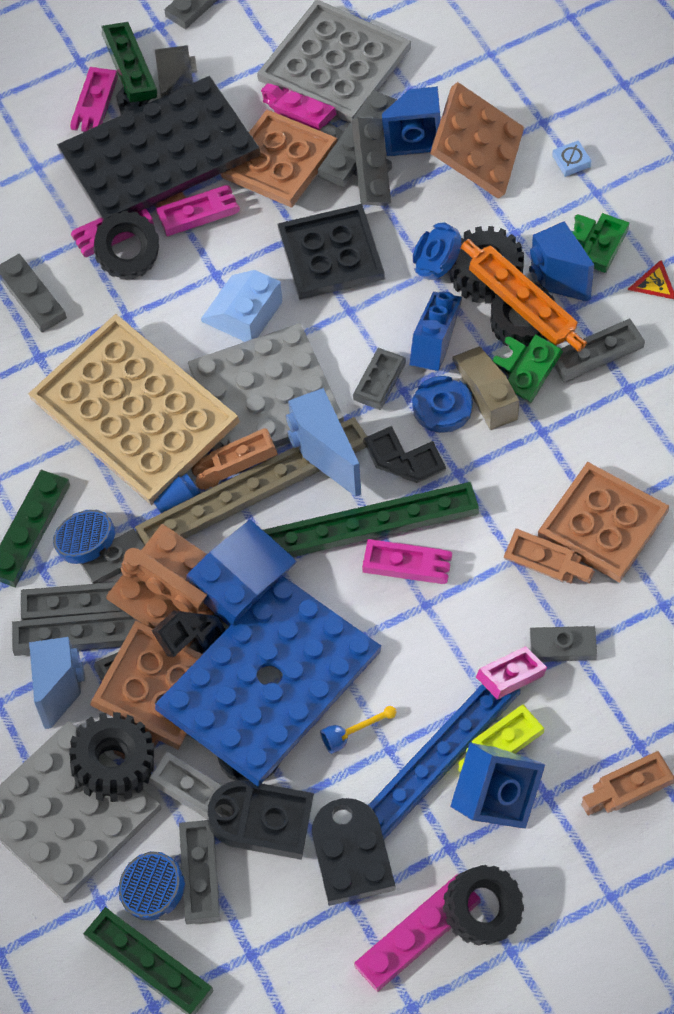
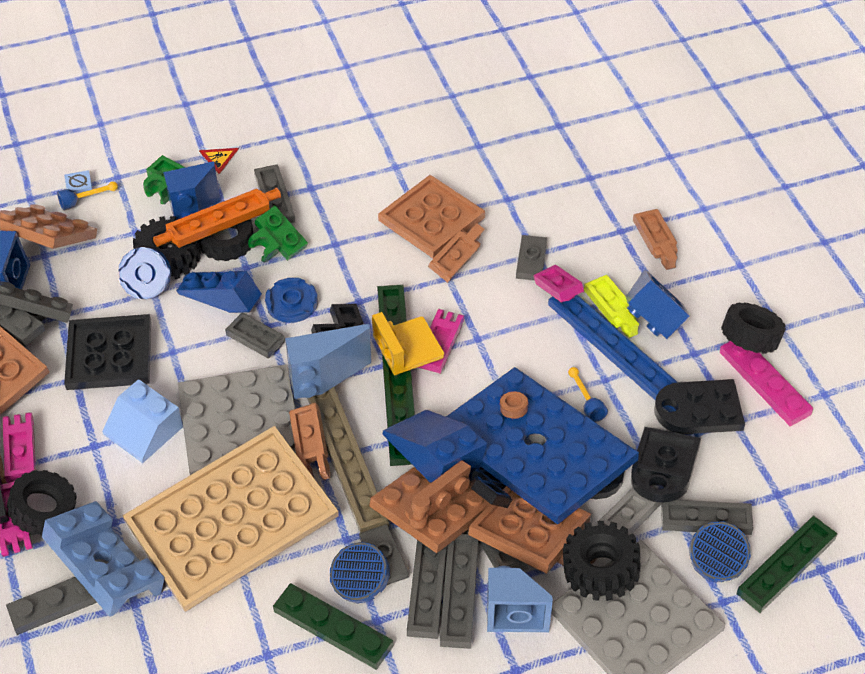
camera: 85 degrees left, 10 degrees down
(92, 291) = (87, 535): none -> medium blue piece
(176, 493) = (334, 490): blue cone -> none
(308, 644) = (514, 405): none -> nougat tile
(377, 519) = (406, 344): none -> yellow bracket
(488, 387) = (293, 260): dark tan slope -> none
(542, 154) = (68, 198): none -> hinge

